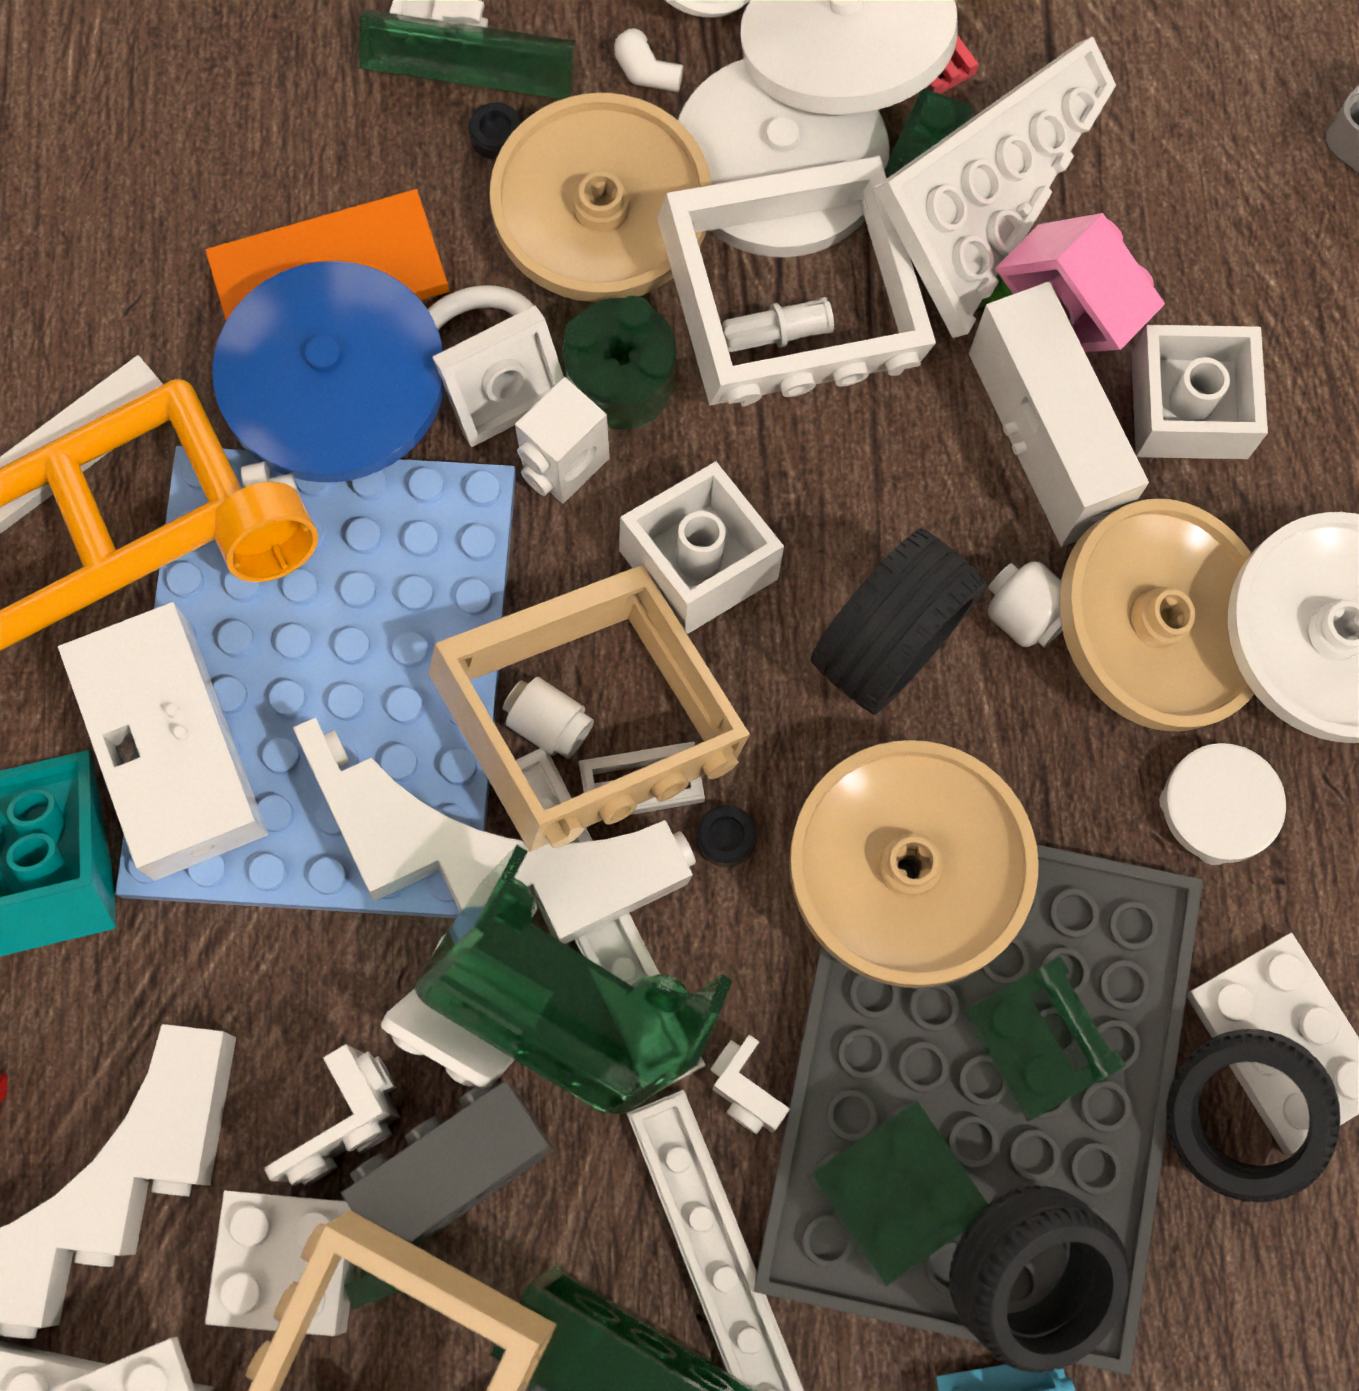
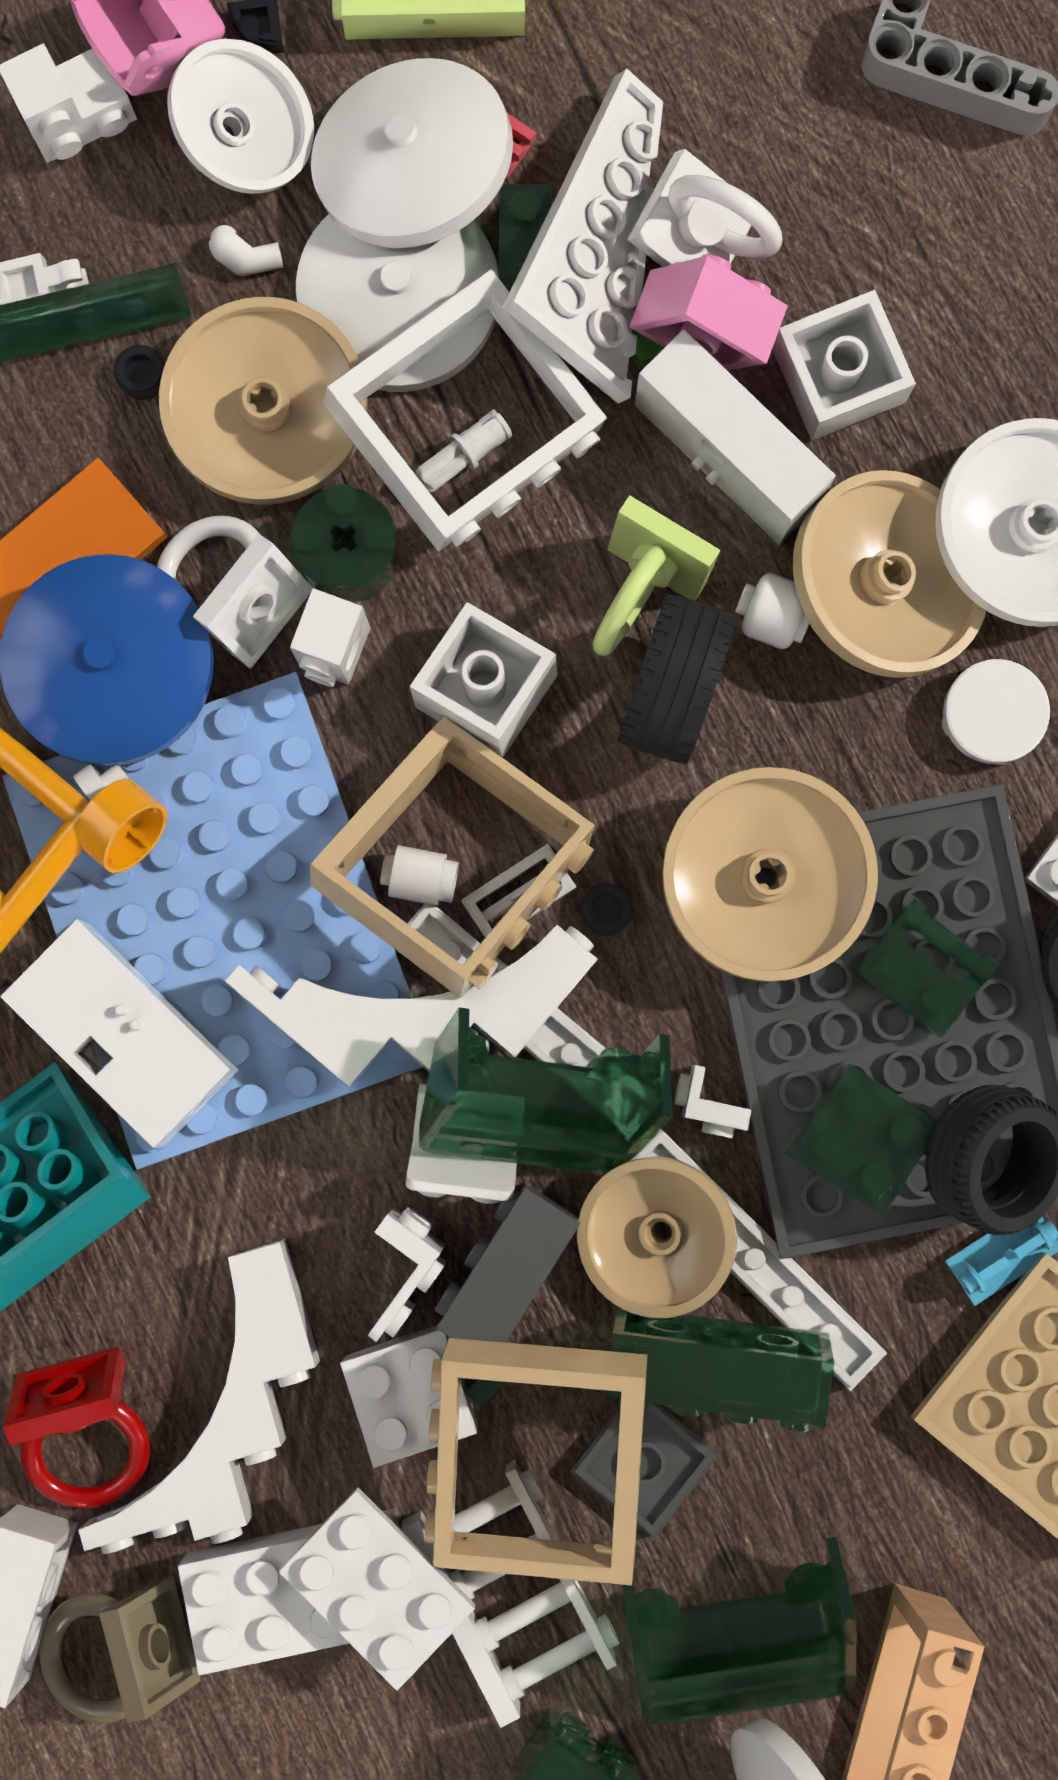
camera: 20 degrees left, 10 degrees up
(589, 1215) = (636, 1265): none -> tan dish
(928, 492) = (658, 556): none -> yellowish green tile
(1123, 184) = (701, 215): none -> white tile

